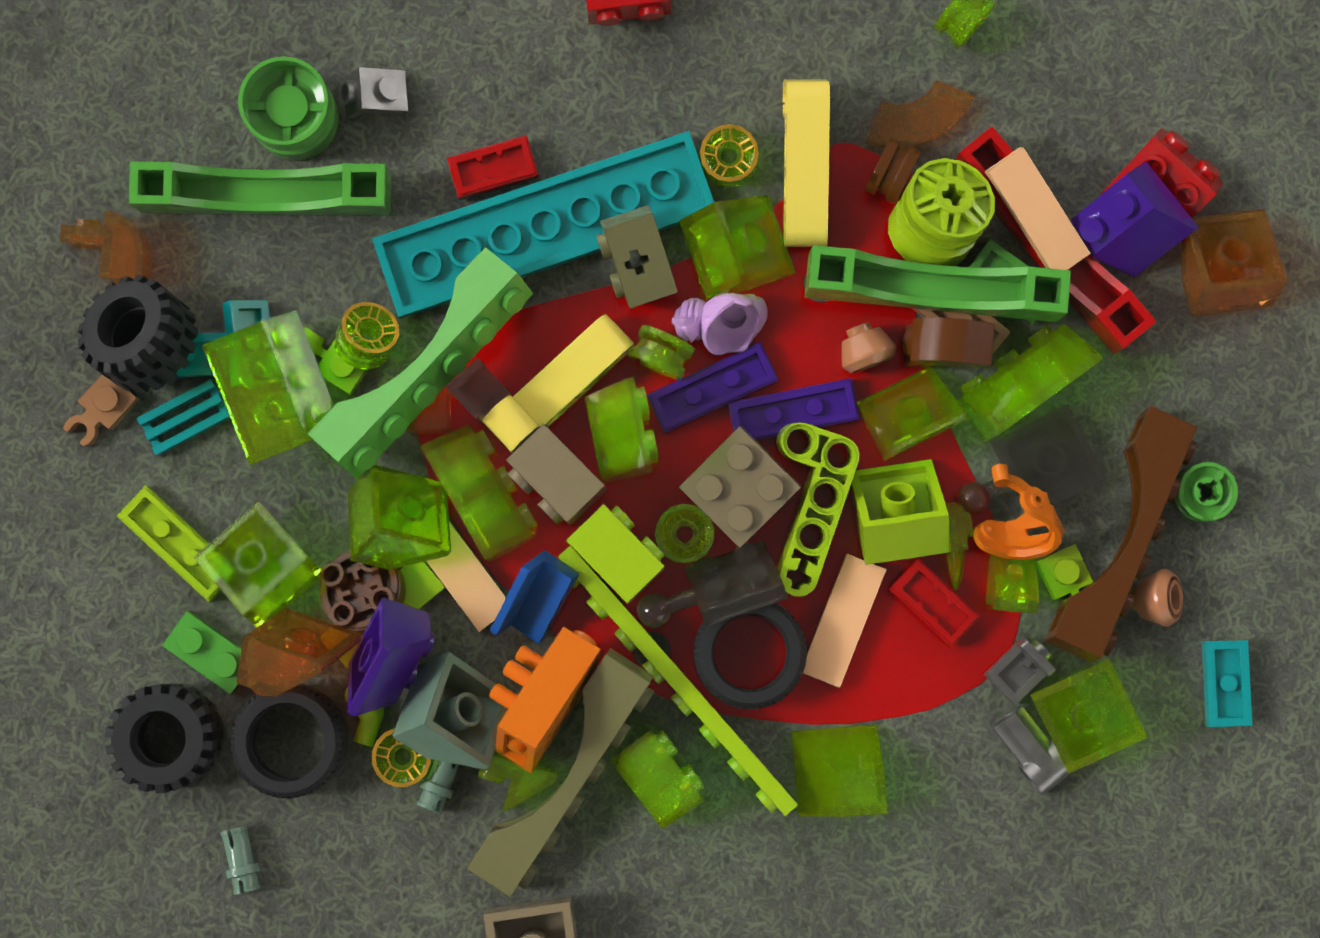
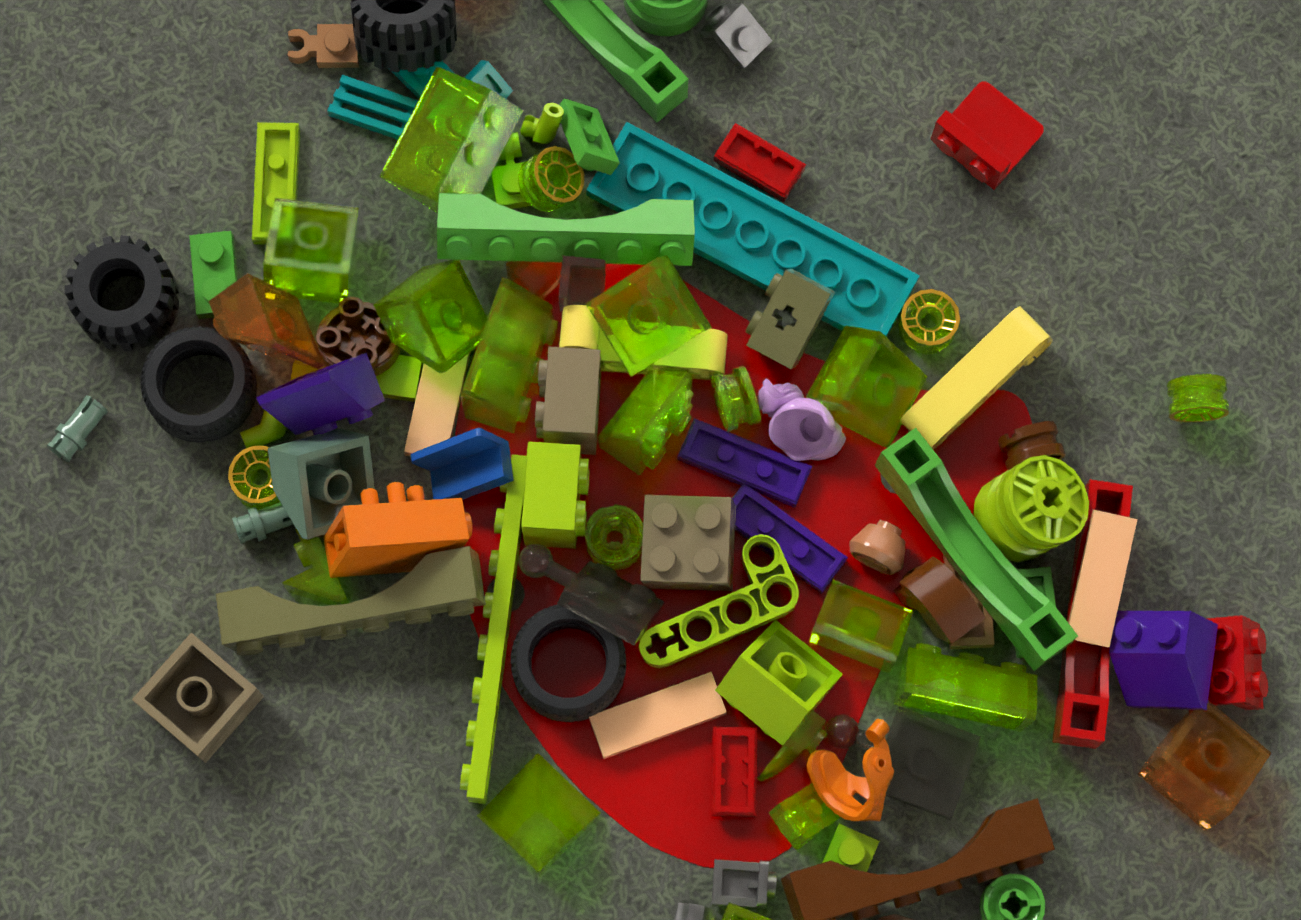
camera: 45 degrees right, 10 degrees down
(319, 303) = (544, 128): none -> lime arm
(358, 279) = (588, 137): none -> bright green plate
(548, 362) = (648, 315): none -> clear neon green slope
(658, 778) = (411, 676): clear neon green slope -> none
(920, 120) = (1093, 440): clear orange tile -> none

